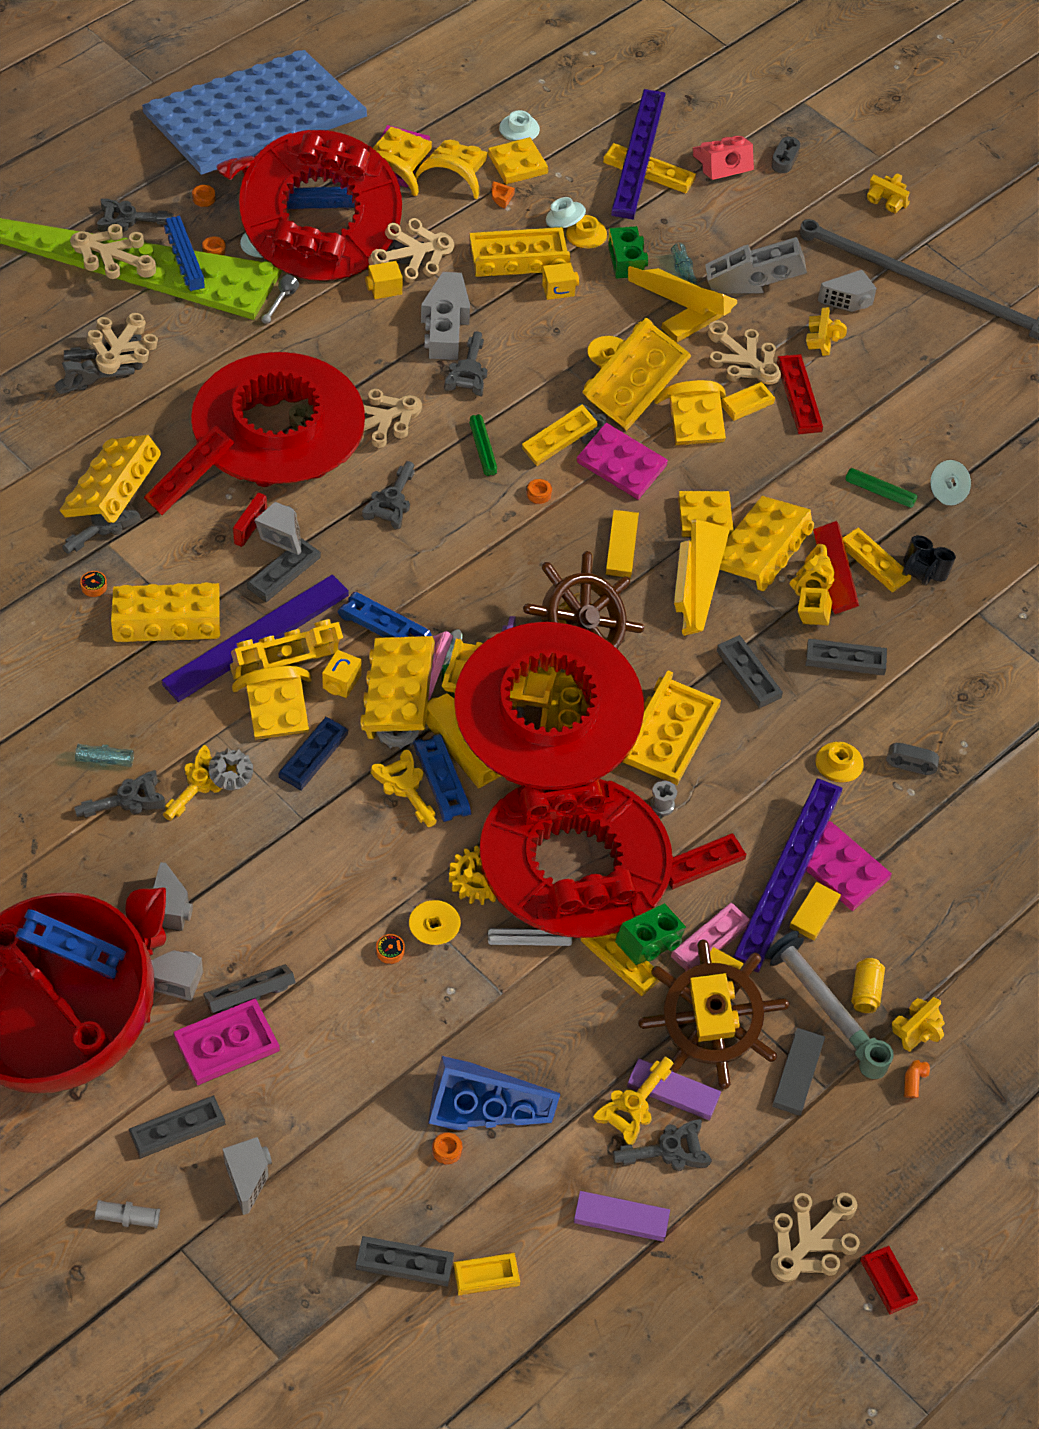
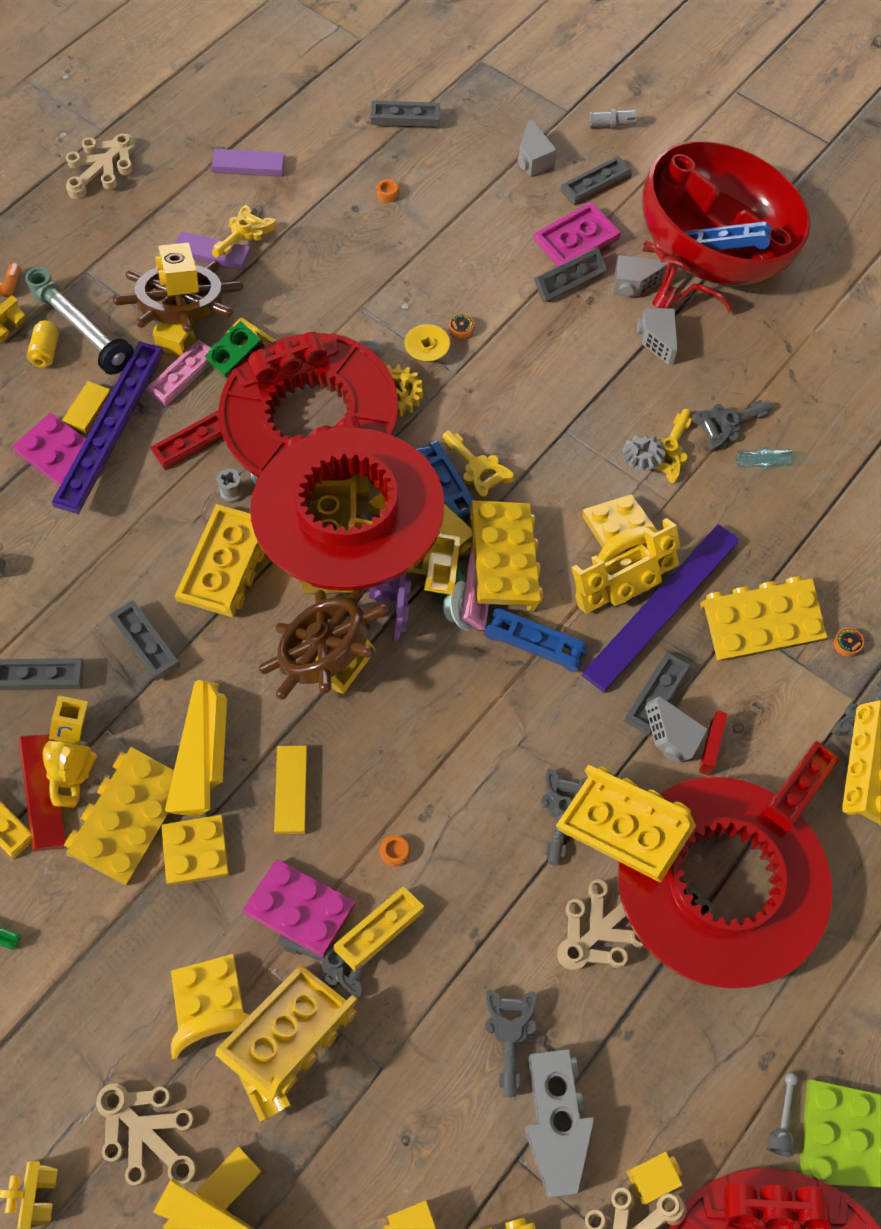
camera: 175 degrees right, 10 degrees up
(313, 753) = (571, 492): dark blue tile -> none
(341, 674) = (561, 573): yellow brick -> none
(349, 451) = (627, 823): none -> yellow bracket
(478, 1096) = (375, 221): blue wedge -> none
(483, 445) = (472, 908): green axle -> none
(486, 1274) = (345, 118): yellow tile -> none
(603, 349) = (322, 1076): yellow piece -> none
(670, 1148) = (213, 210): dark grey piece -> none
(747, 401) = (141, 1048): yellow tile -> none
(798, 1071) = (107, 276): dark grey tile -> none
(799, 394) = (72, 1077): red tile -> none
(839, 770) = (60, 569): yellow piece -> none
(889, 1279) = (45, 147): red tile -> none

